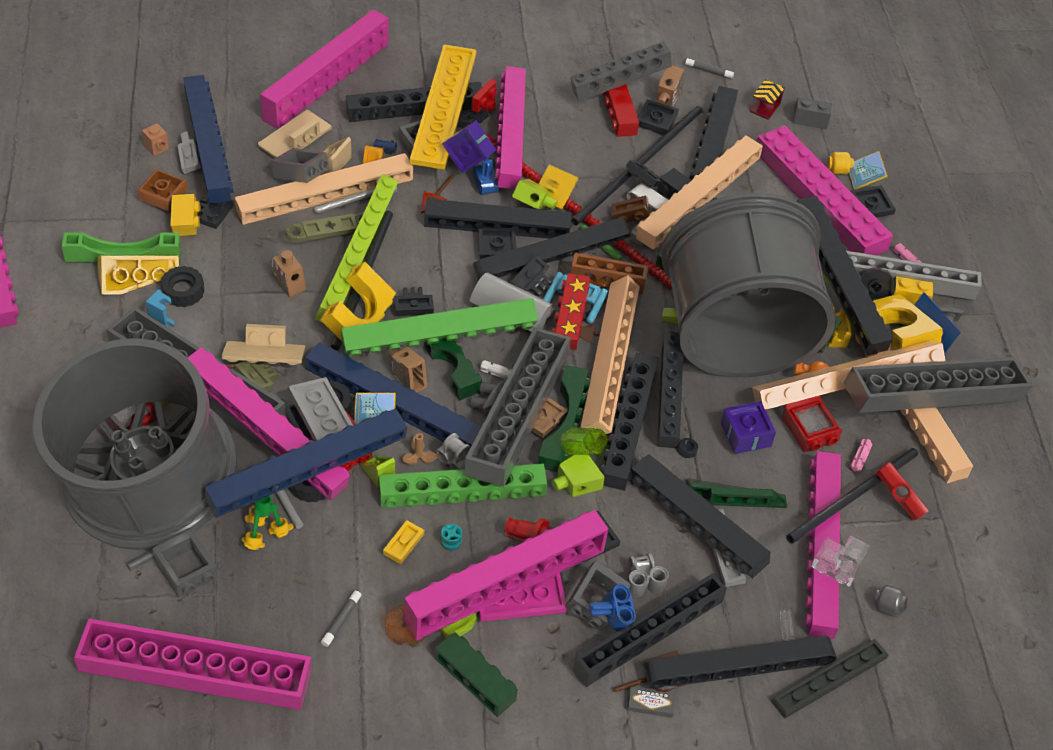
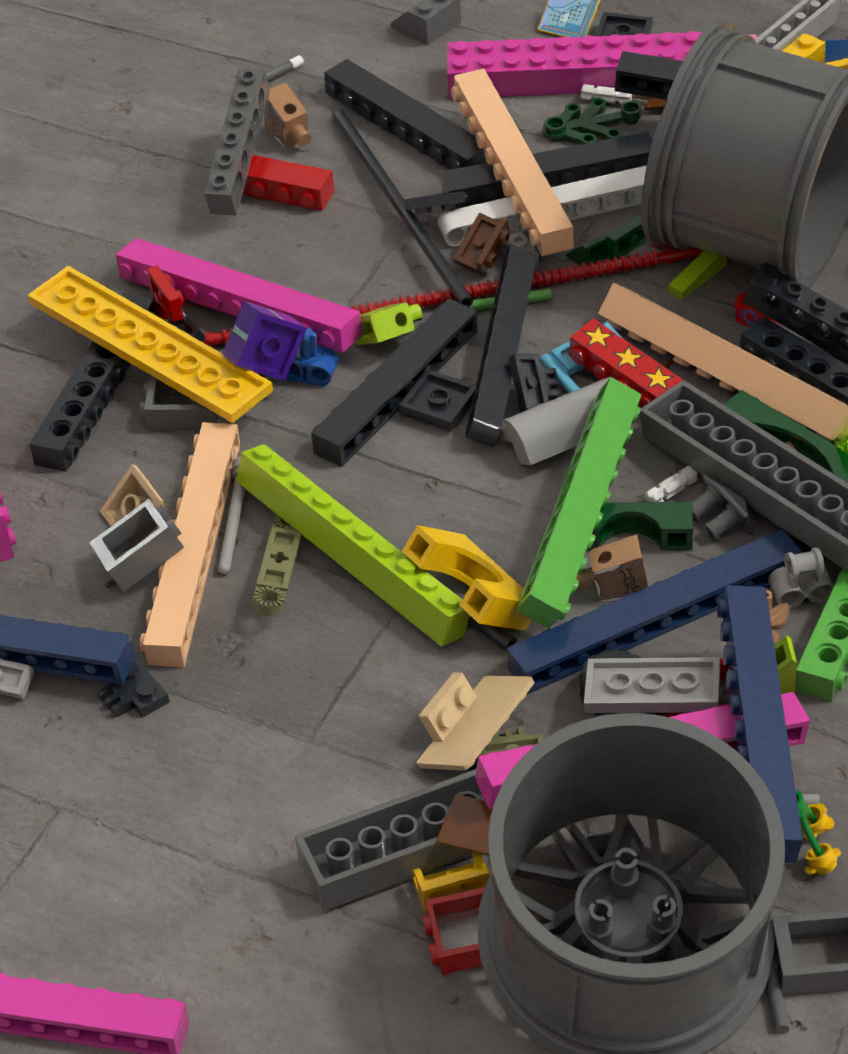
camera: 50 degrees left, 5 degrees down
(84, 248) = (109, 865): bright green arch -> none
(128, 273) = (192, 833): yellow wedge -> none
(157, 309) = (318, 807): dark azure hinge -> none
(160, 188) = (48, 731): dark orange brick -> none
(183, 274) = (276, 798): black tyre -> none
(184, 214) = (127, 720): yellow brick -> none
(286, 267) = (340, 638): medium nougat torso -> none
(295, 134) = (52, 539): tan bracket -> none
(372, 154) = (169, 464): light orange tile -> none
(372, 404) = (672, 633): piece -> none
(389, 146) = (159, 443): dark blue pin -> none
(413, 303) = (487, 526): black hinge -> none
(427, 195) = (296, 439): piece -> none
(559, 183) = (382, 289): yellow piece -> none
(605, 271) = (577, 306): dark orange brick -> none
(657, 116) = (324, 152): black plate -> none
(769, 99) = (373, 43): piece -> none
(840, 163) = (538, 26): yellow head -> none

